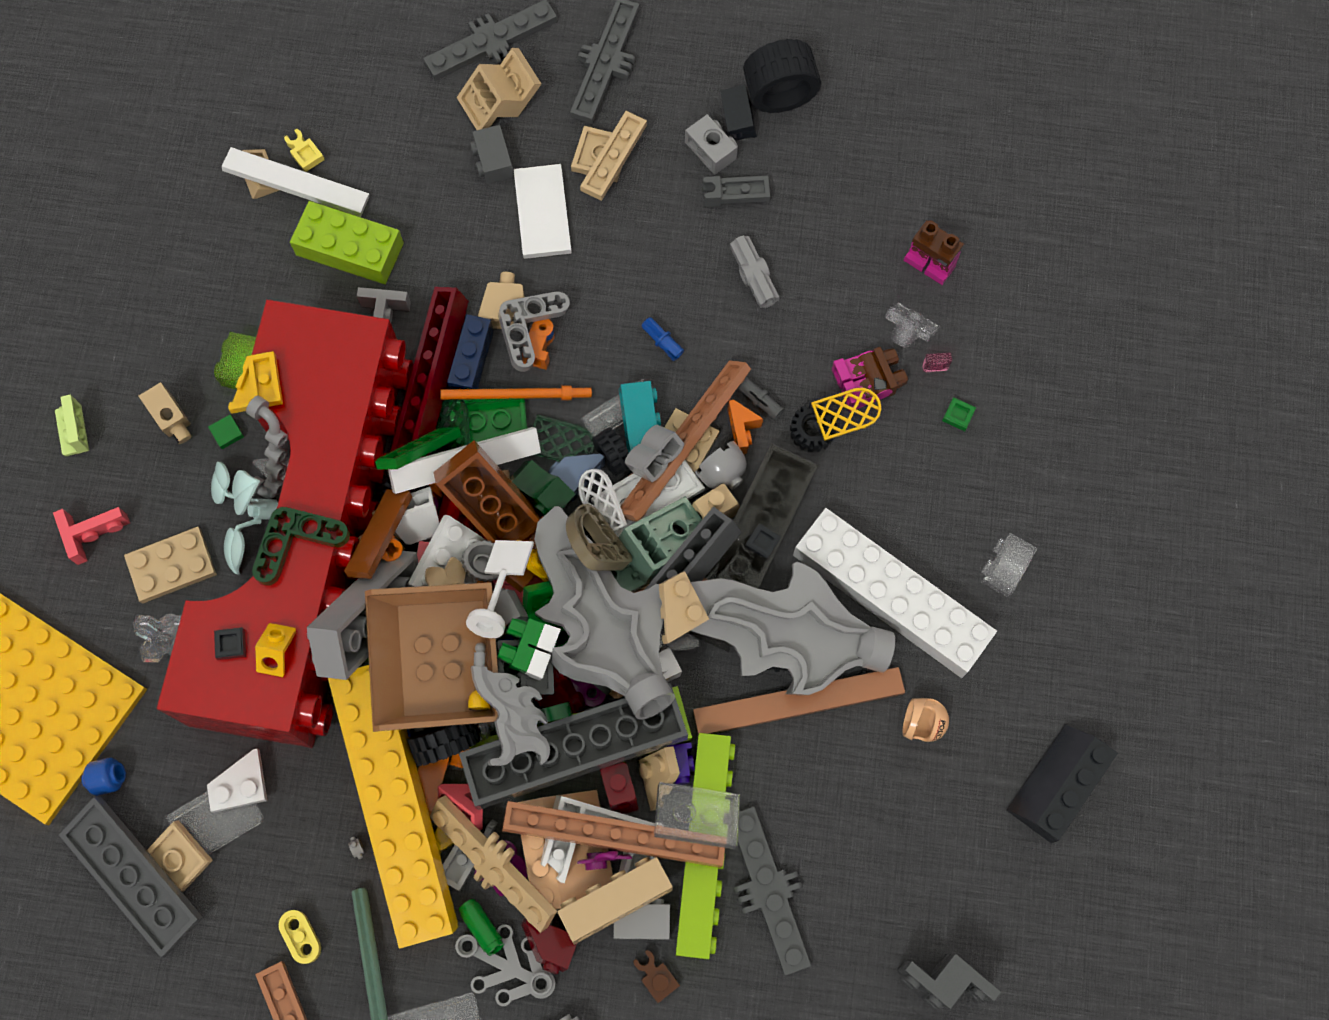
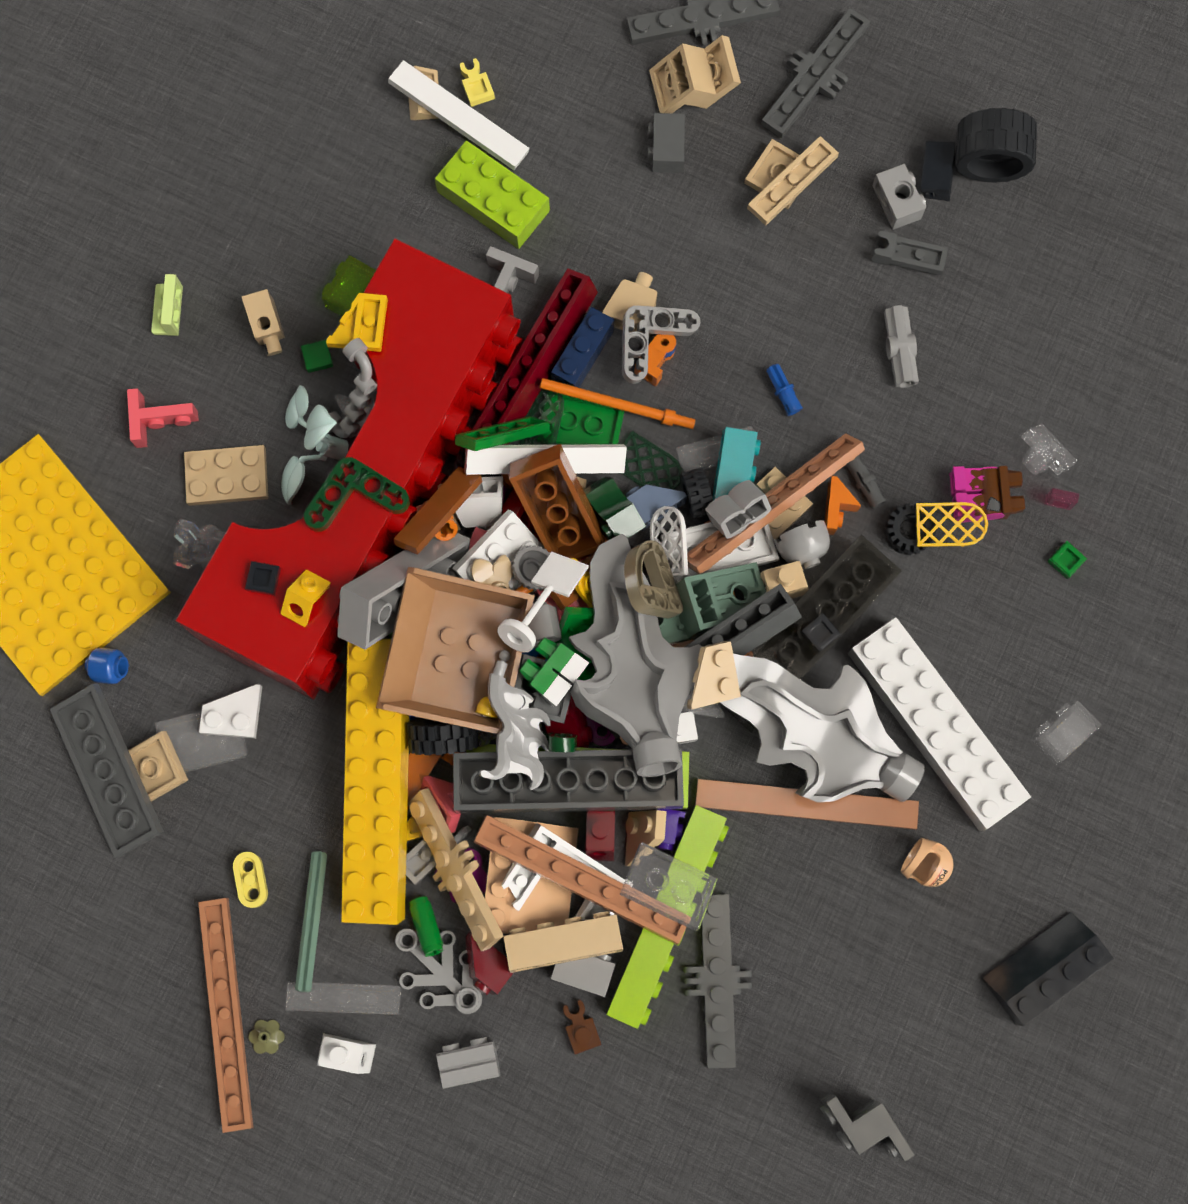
camera: 20 degrees right, 5 degrees up
(356, 847) = (328, 811): light grey piece -> none
(542, 211) = (701, 218): white tile -> none
(599, 860) = (558, 899): magenta plate -> none
(934, 245) = (1102, 375): reddish brown hips -> none

